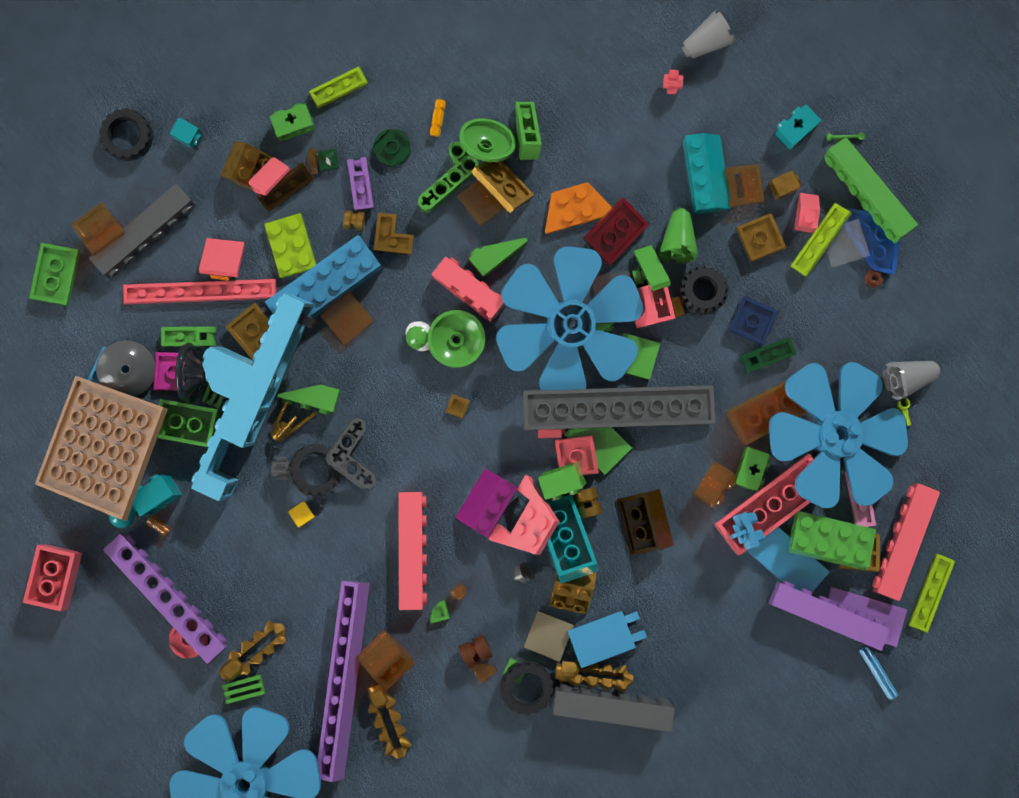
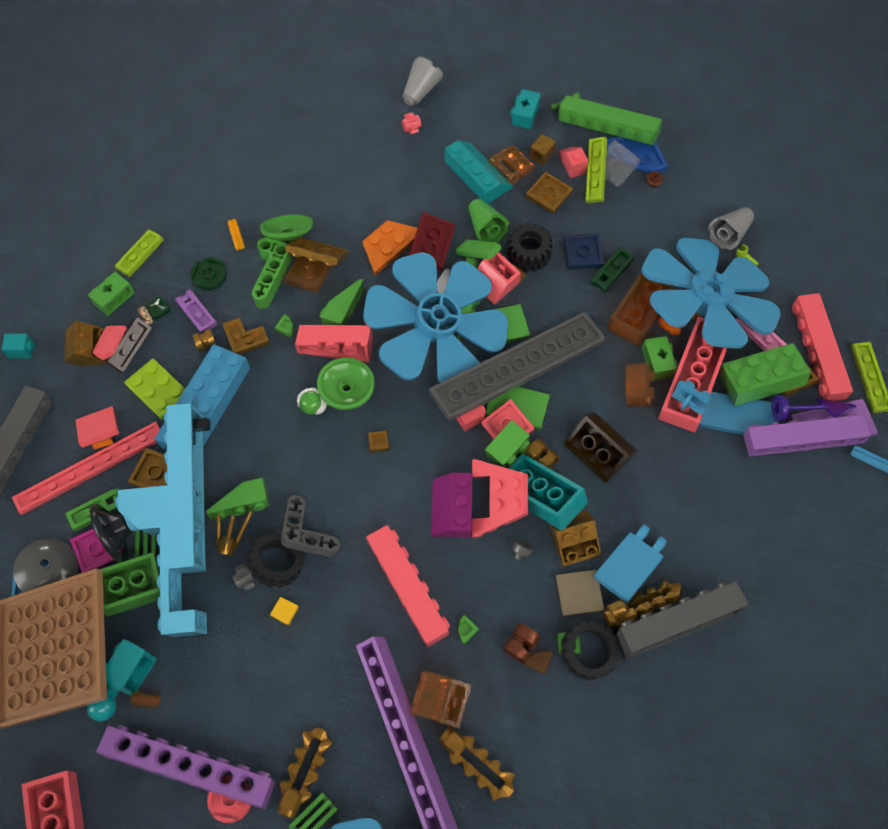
camera: 30 degrees left, 20 degrees down
(347, 318) = (238, 420): clear orange plate -> none
(434, 244) = (285, 326): none -> bright green tile
(458, 592) = (473, 599): clear orange plate -> none
(527, 131) = (317, 208): bright green slope -> none
(873, 603) = (781, 407): none -> dark purple piece

